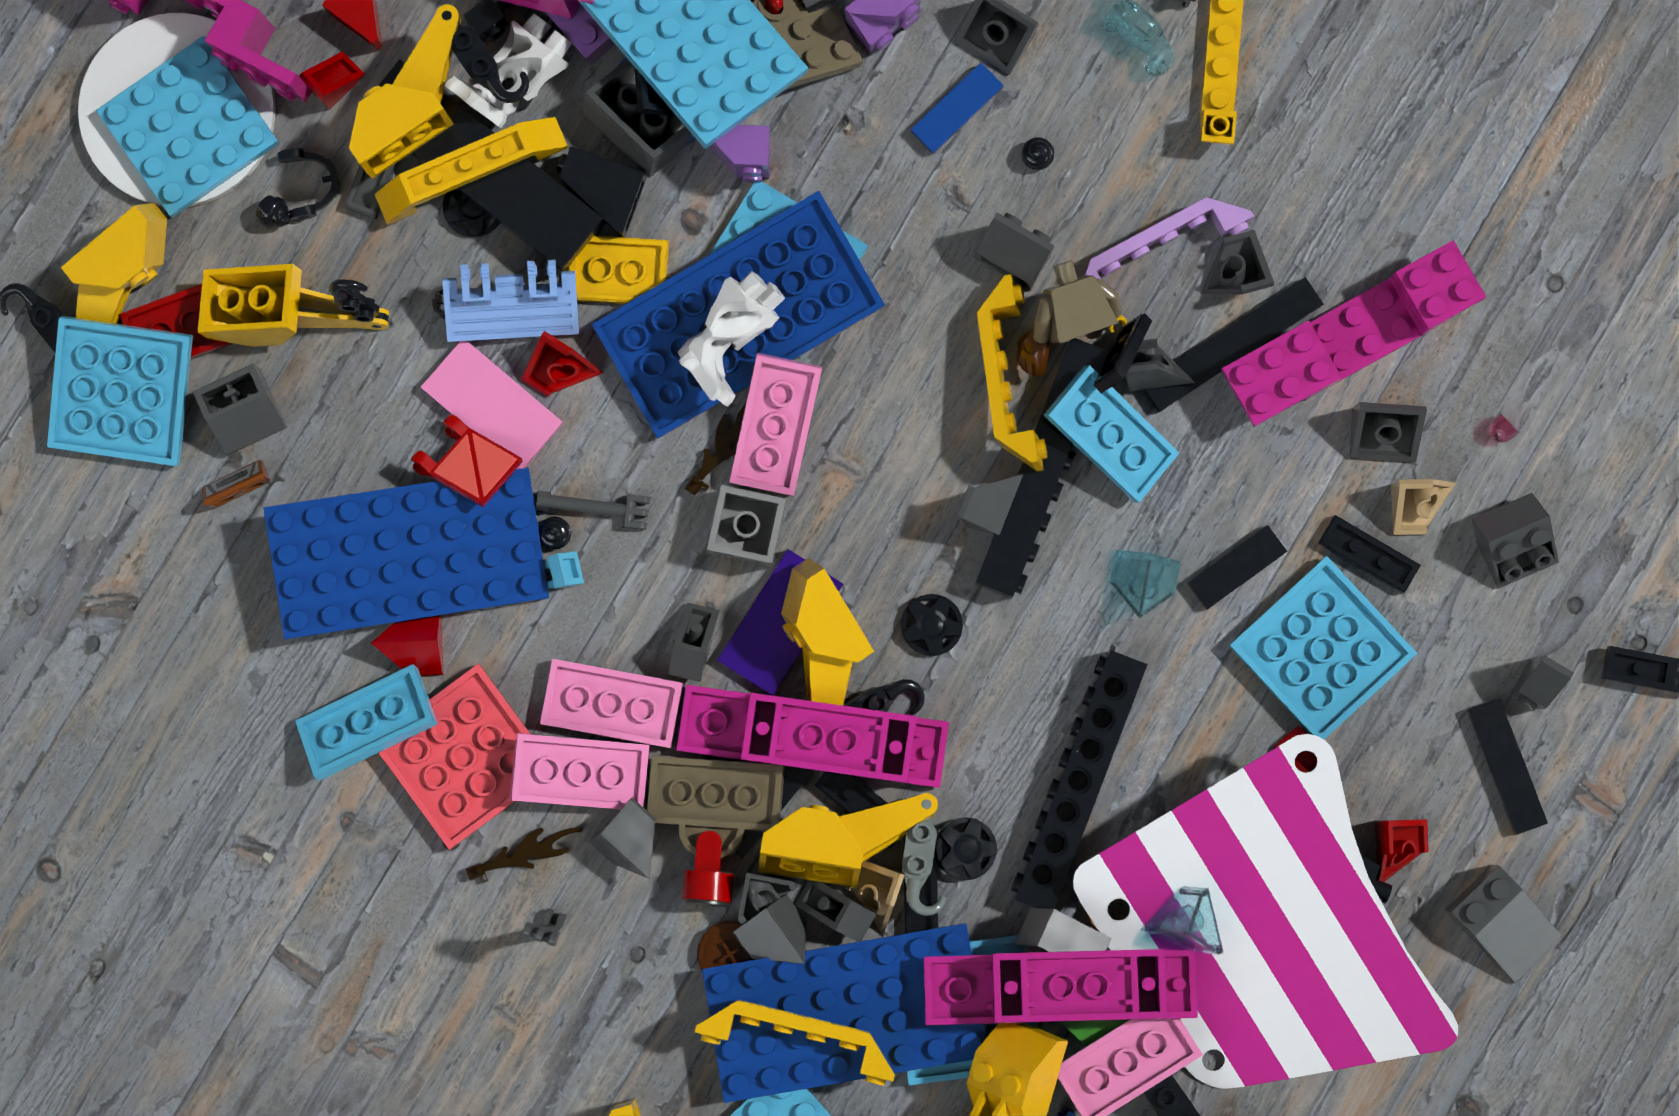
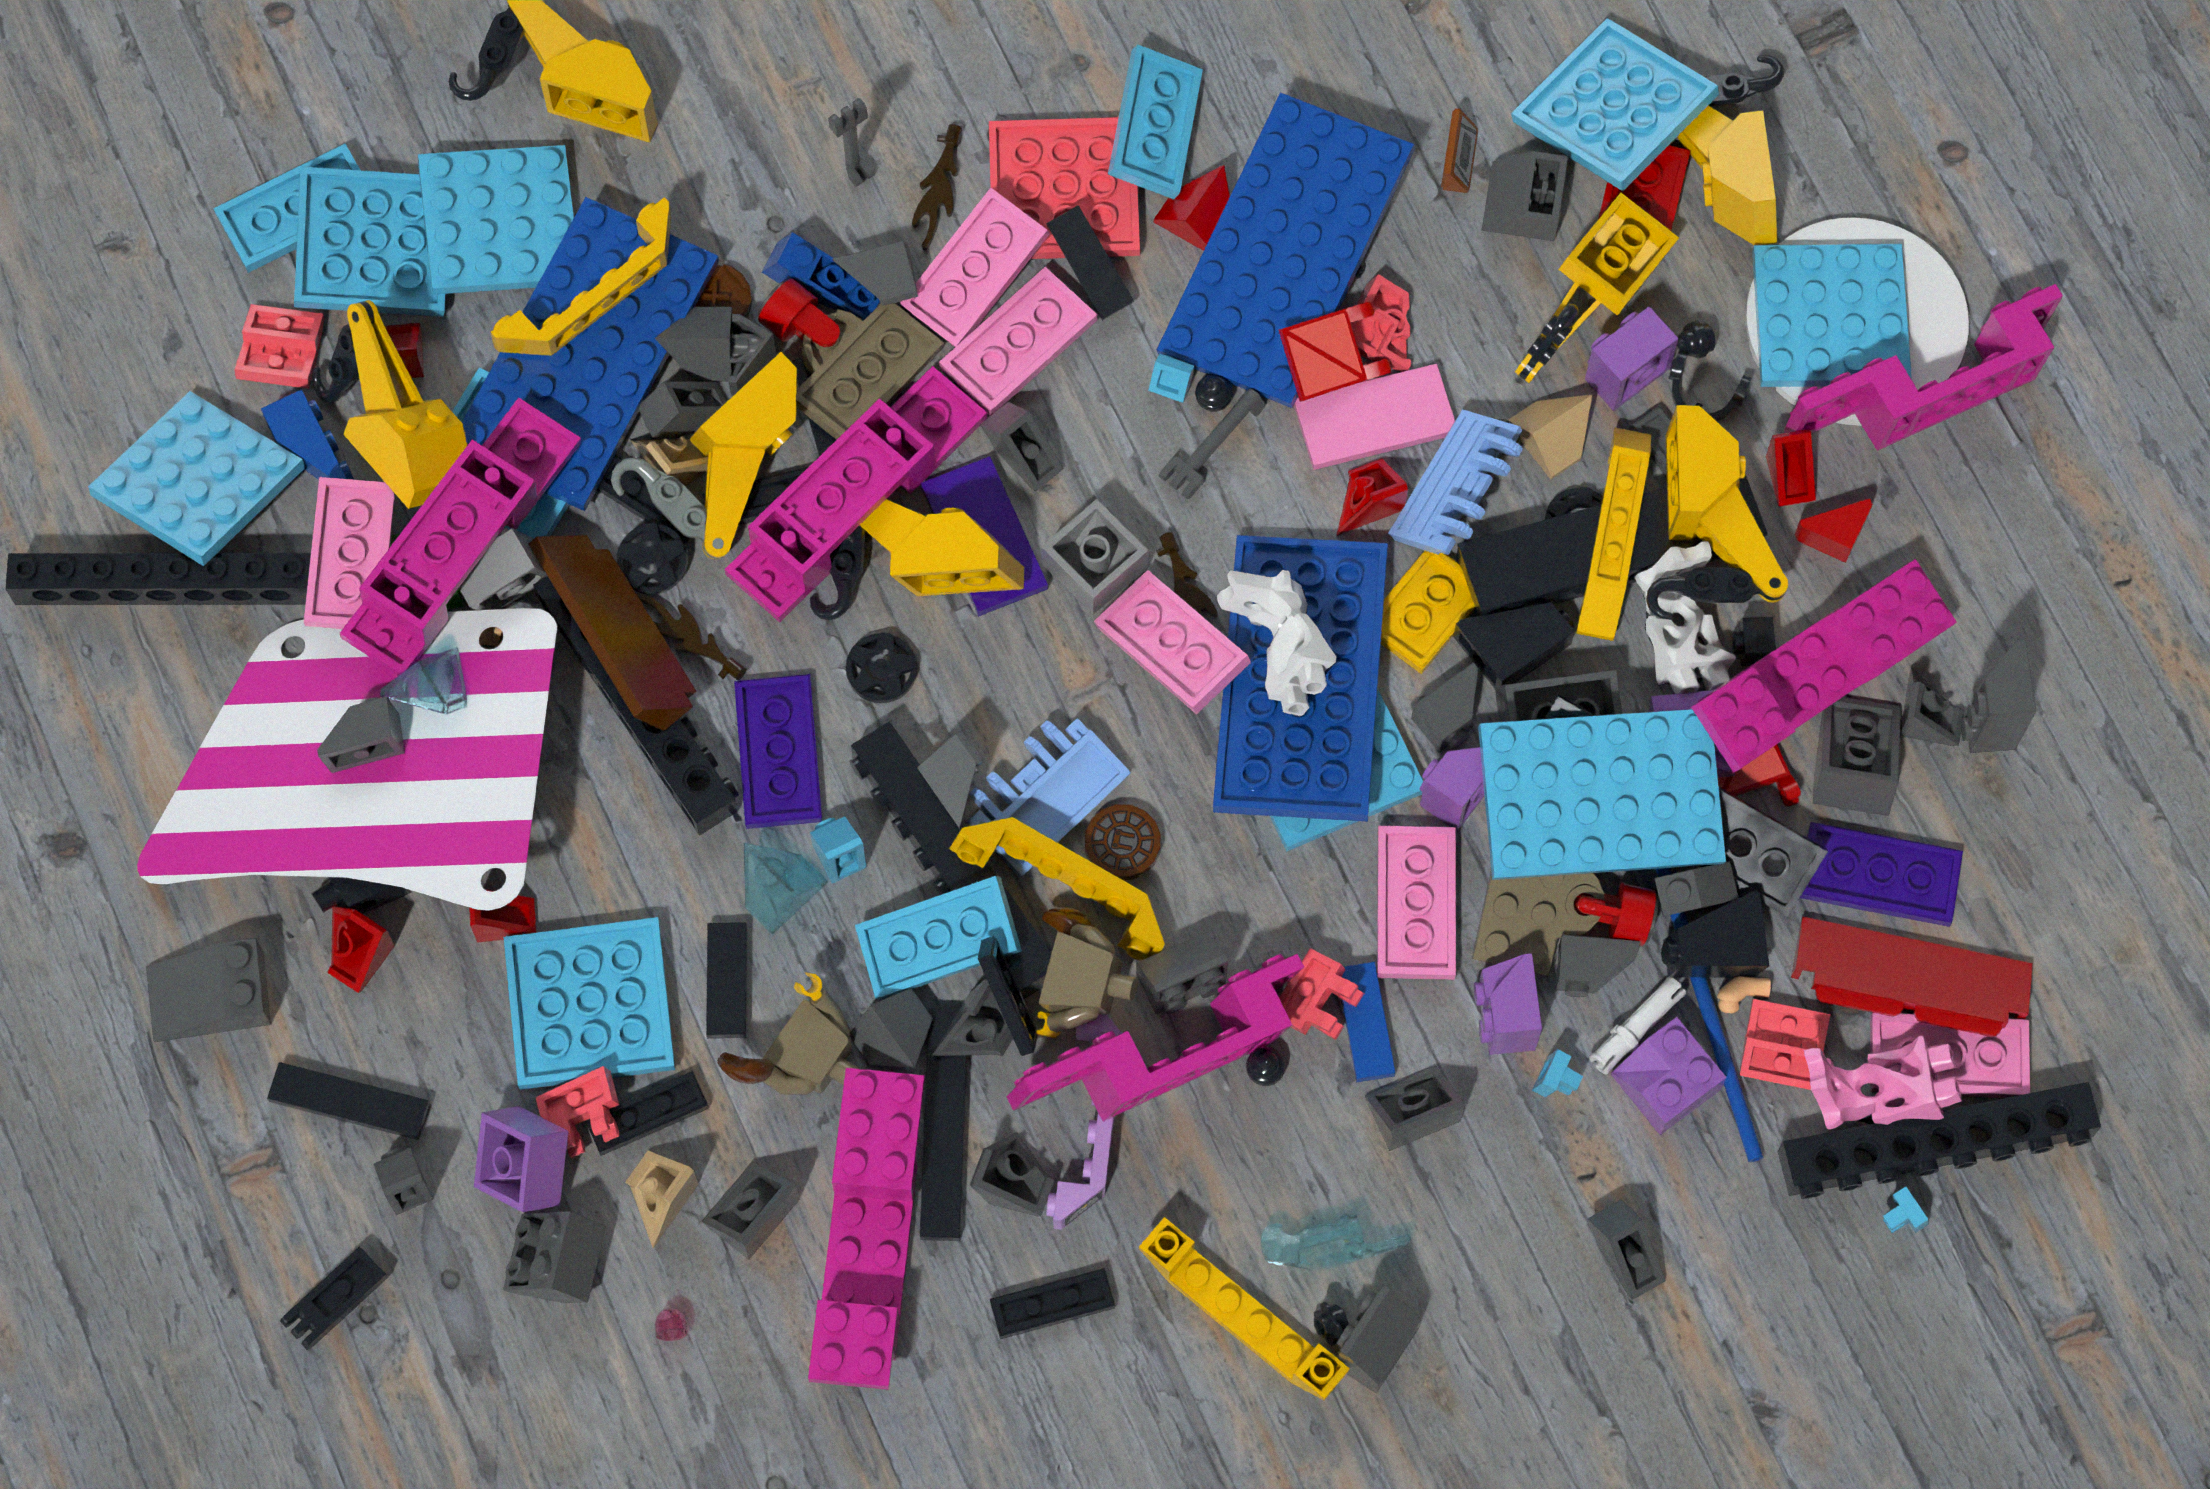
camera: 120 degrees right, 15 degrees down
(326, 241) = (1630, 357): none -> medium lavender slope
(397, 450) = (1387, 330): none -> coral slope
(416, 269) = (1555, 431): none -> tan slope
(515, 691) = (1090, 262): none -> black tile
(664, 889) = (819, 275): none -> blue slope
(687, 198) = (1448, 710): none -> dark grey slope
(846, 129) = (1416, 902): none -> bright pink plate
(943, 363) = (1123, 841): none -> tile
(945, 431) = (1053, 797): none -> light blue hinge
(965, 158) = (1310, 990): none -> coral plate
(1000, 783) = (689, 631): none -> dark brown piece
(1045, 653) = (778, 751): none -> dark purple tile
(1045, 826) = (617, 628): none -> reddish brown slope
(1091, 555) = (838, 848): none -> medium azure slope
(1133, 217) = (1117, 1074): none -> dark pink bracket
(1195, 419) = (893, 1030): none -> dark grey slope
(1256, 472) = (806, 1051): none -> dark tan torso
(1256, 943) = (363, 736): none -> dark grey slope
(1303, 185) = (1052, 1303): none -> black tile
(1399, 603) = (581, 1100): none -> coral plate
(1469, 609) = (521, 1159): none -> medium lavender slope

